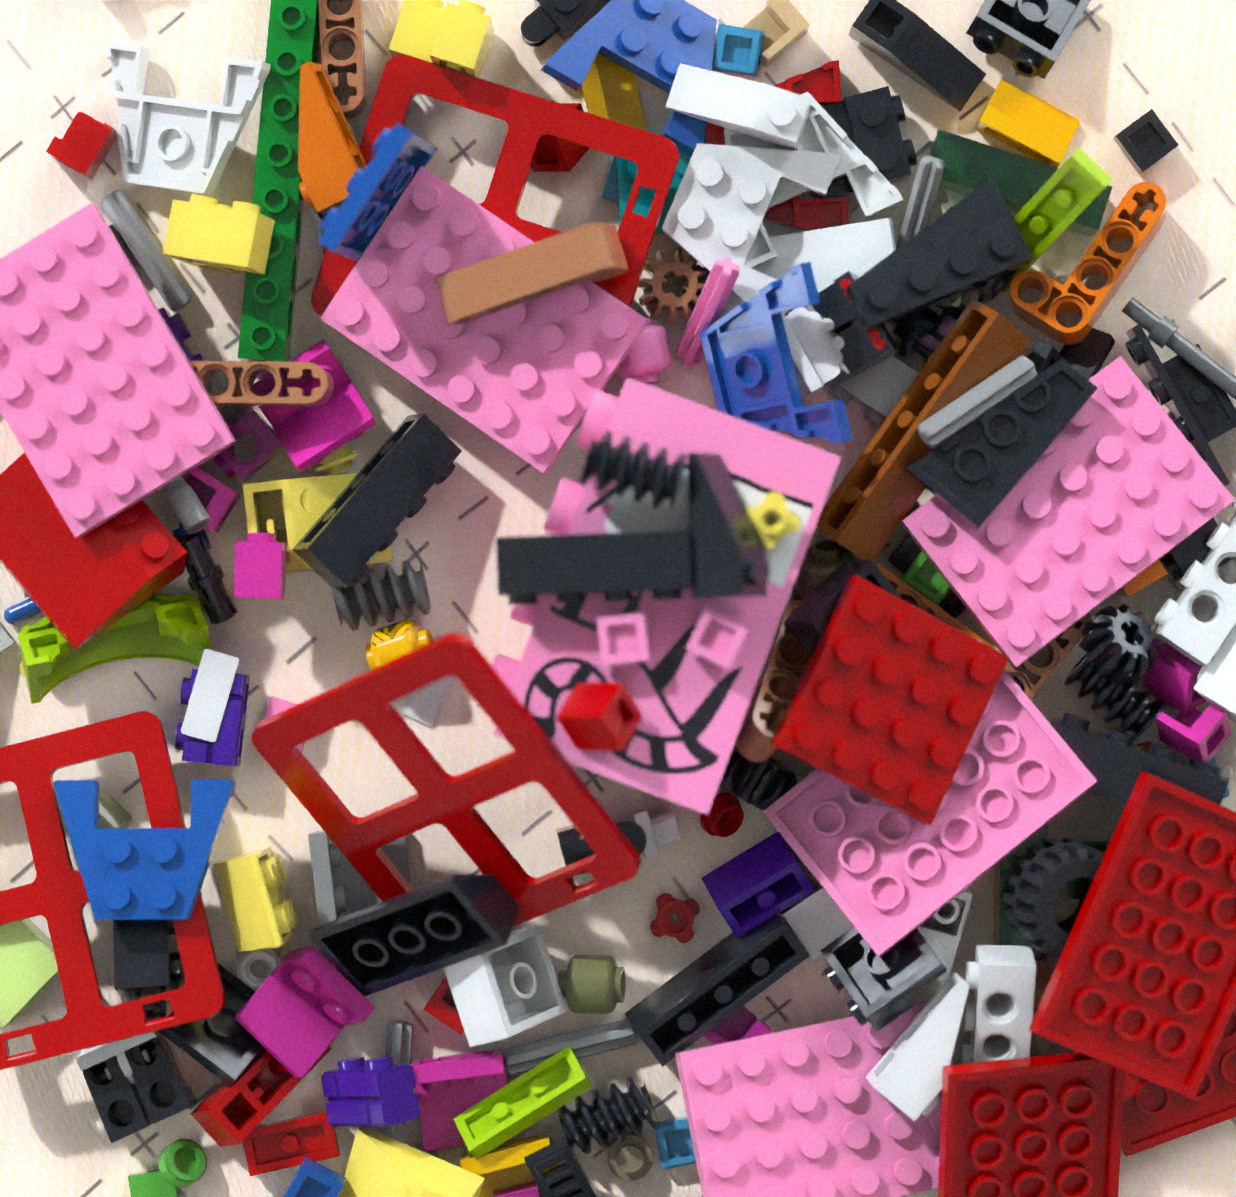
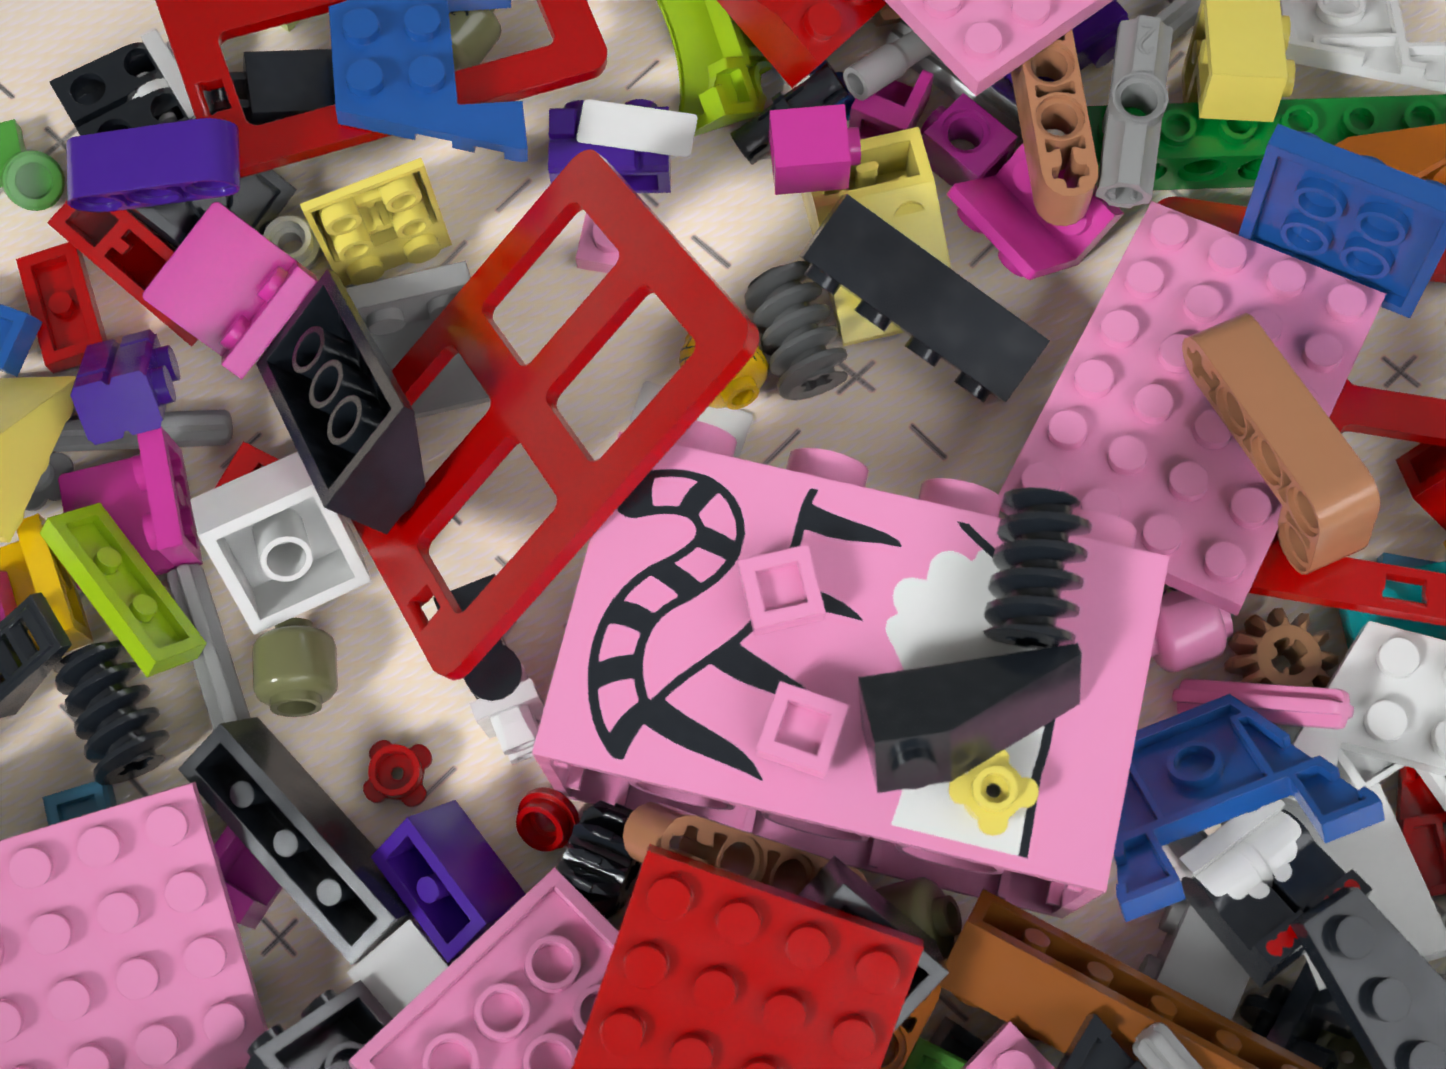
camera: 85 degrees right, 15 degrees down
(217, 1057) = (153, 165): none -> dark purple beam
(231, 318) = (1130, 140): none -> light grey piece
(337, 461) = (969, 253): light yellow plate -> none
(593, 564) = (886, 529): black brick -> none
(599, 716) = (661, 570): red panel -> none
(630, 1158) = (55, 752): dark tan plate -> none

